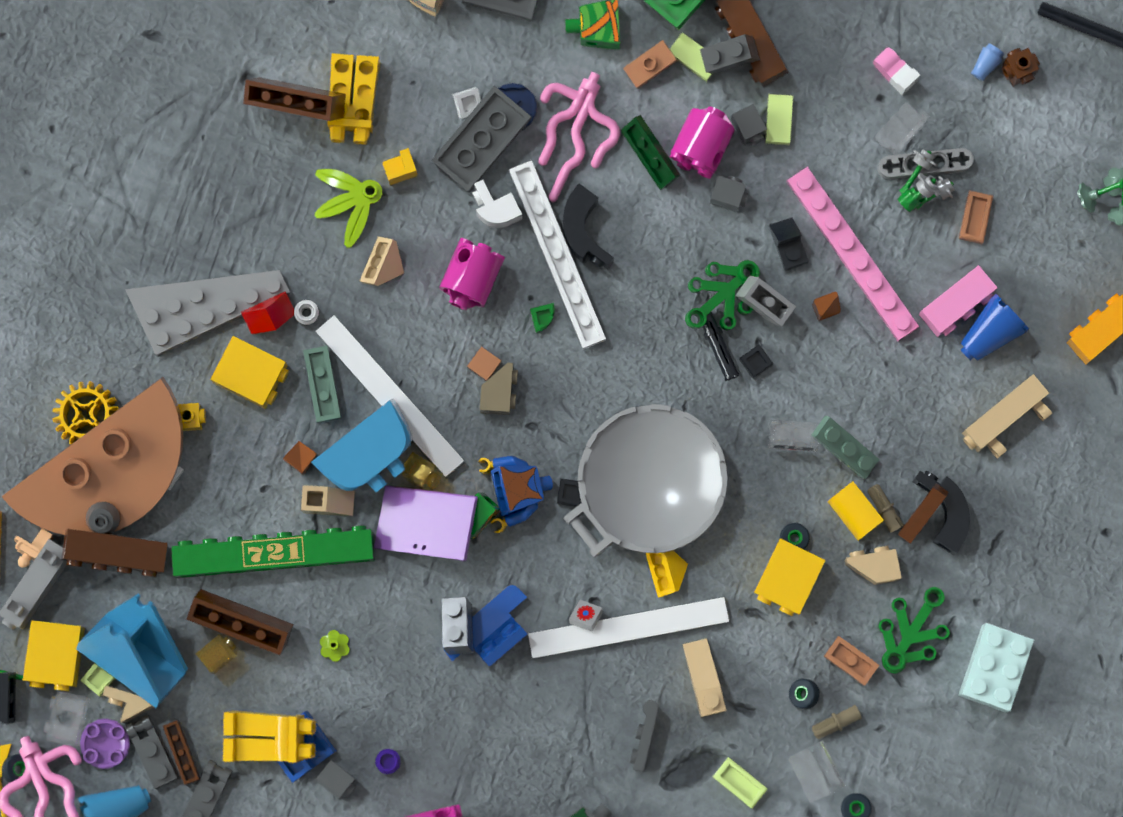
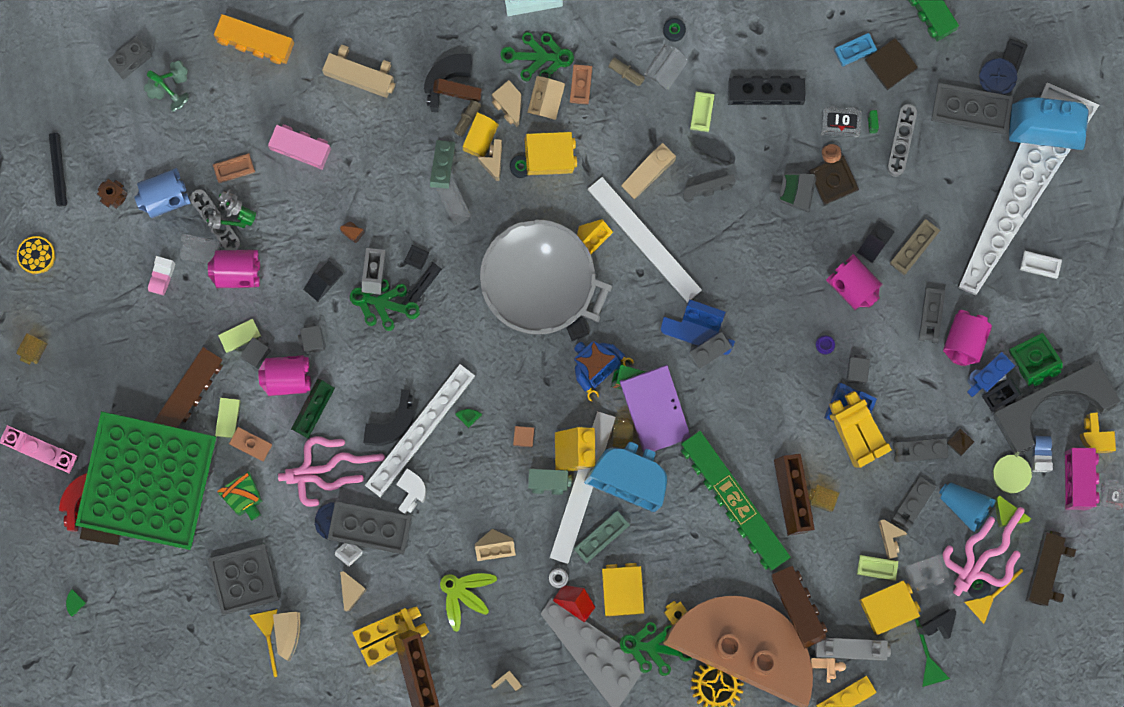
camera: 120 degrees left, 0 degrees up
(104, 743) = (926, 538): medium lavender dish -> none
(106, 512) = (777, 627): dark grey cone -> none
(136, 650) = (854, 552): dark azure ladder -> none
(169, 367) = (651, 648): none -> green plant
(181, 752) = (901, 483): reddish brown piece -> none
(224, 195) = (510, 678): none -> tan panel
(300, 457) = (659, 522): dark orange slope -> none
(327, 501) = (679, 485): tan slope -> none
(341, 648) = (769, 430): lime plant -> none
(400, 167) = (420, 574): yellow panel -> none
(418, 363) = (549, 480): none -> sand green brick
(426, 83) = (351, 591): none -> tan slope
(433, 406) = (575, 449): none -> yellow brick
(471, 274) = (468, 478): dark pink cylinder -> none
(497, 392) = (538, 415): dark tan slope -> none
(586, 615) = (653, 270): light grey tile -> none
(729, 54) = (215, 390): dark grey brick -> none
(811, 697) = (615, 98): black wheel -> none
(812, 505) = (493, 164): none -> tan slope
(852, 254) = (305, 235): bright pink plate -> none
(856, 152) = (235, 269): none -> dark pink cylinder
(857, 611) = (546, 97): none -> tan panel
(988, 60) = (119, 218): medium blue cone -> none
(988, 119) = (161, 193): none -> medium blue cylinder
(992, 329) = (306, 113): blue cone -> none

